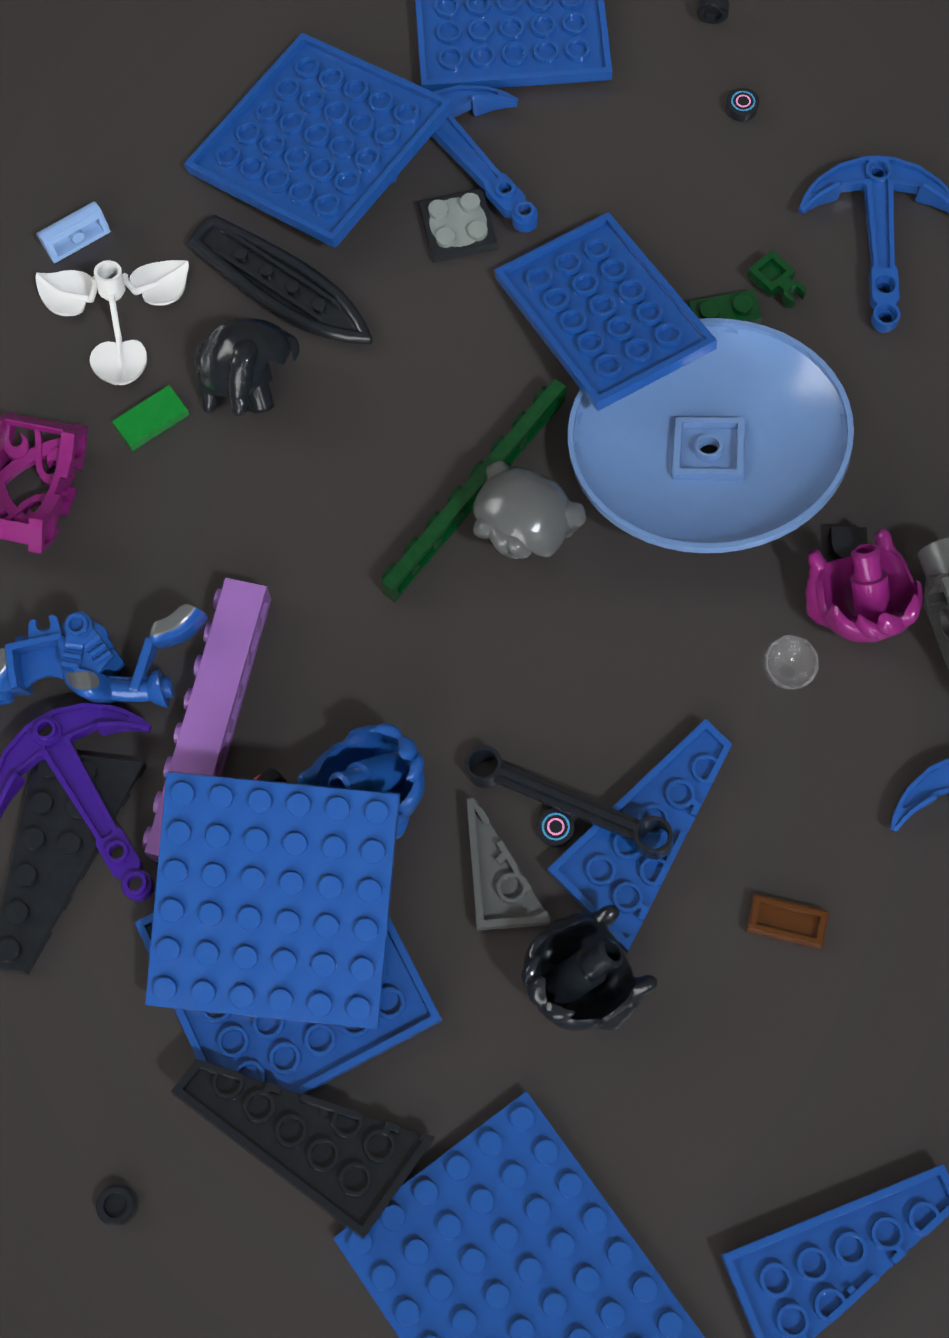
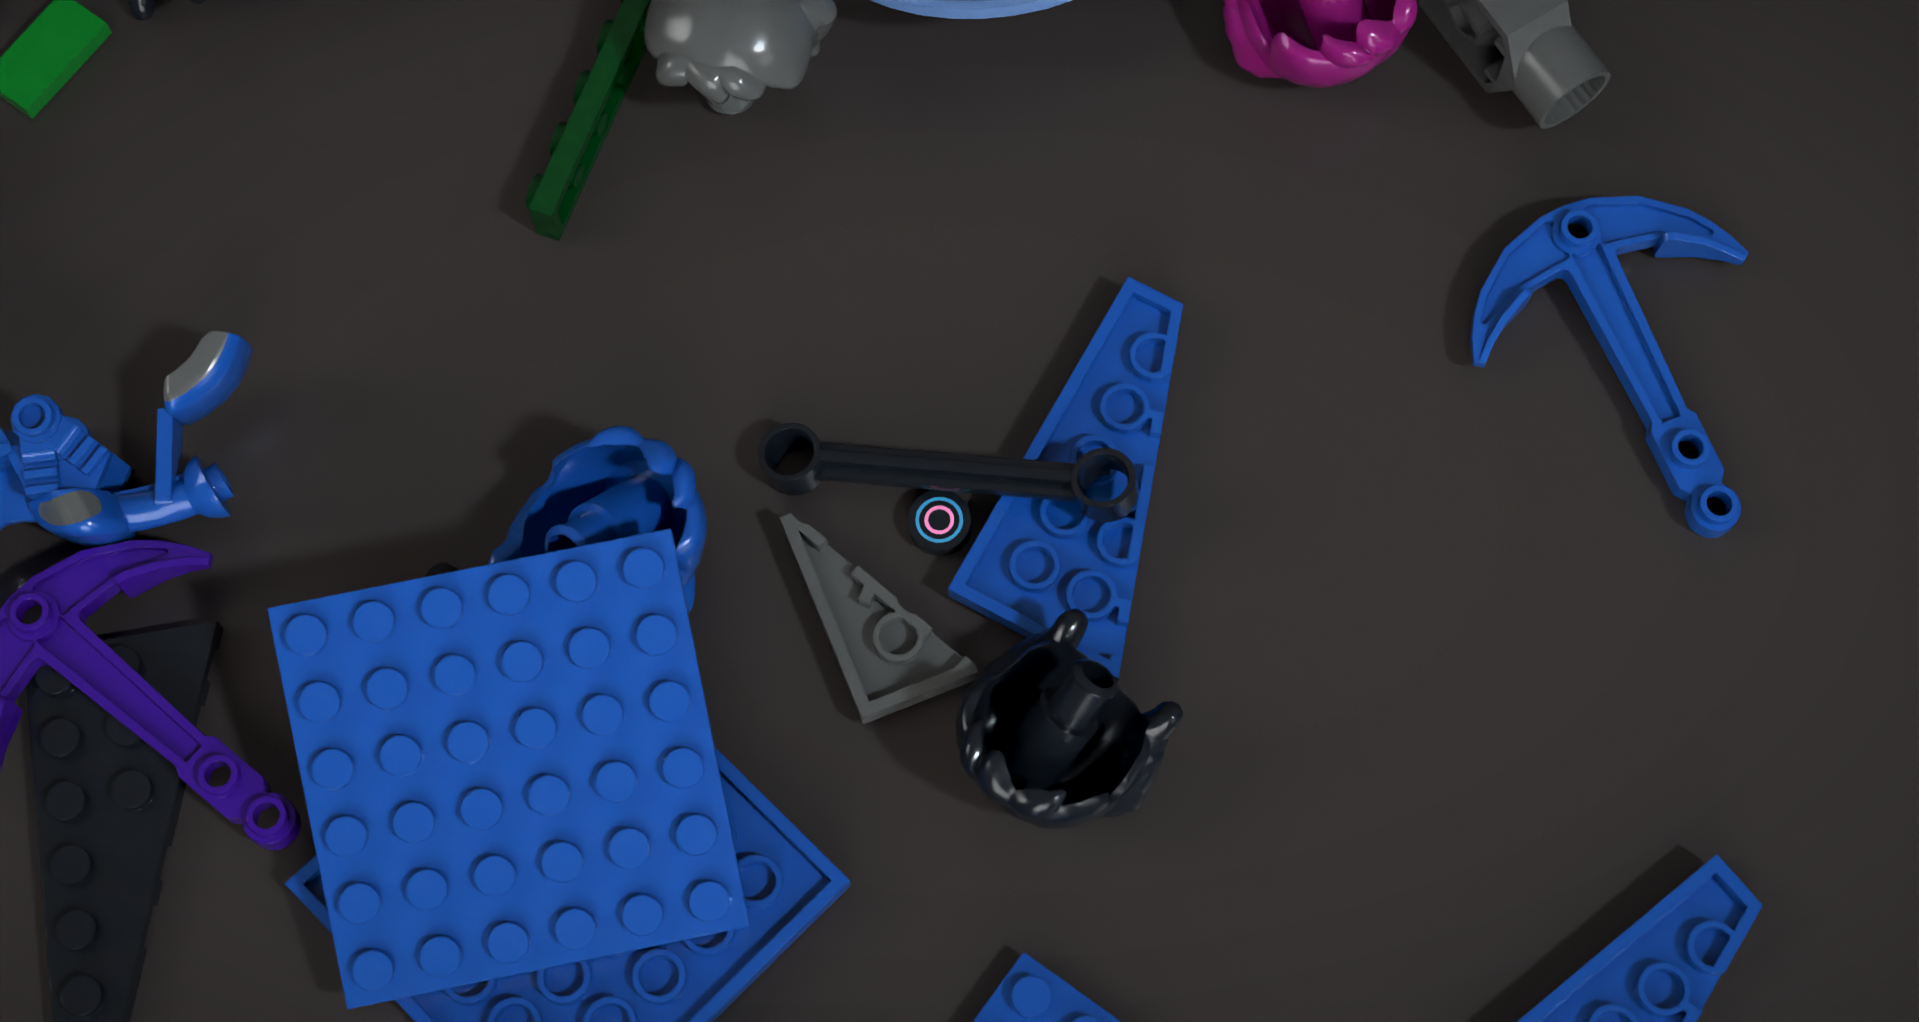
camera: 20 degrees left, 0 degrees up
(217, 690) = (305, 469): medium lavender brick -> none
(787, 921) = (1356, 558): reddish brown tile -> none
(790, 662) = (1236, 149): clear hair -> none

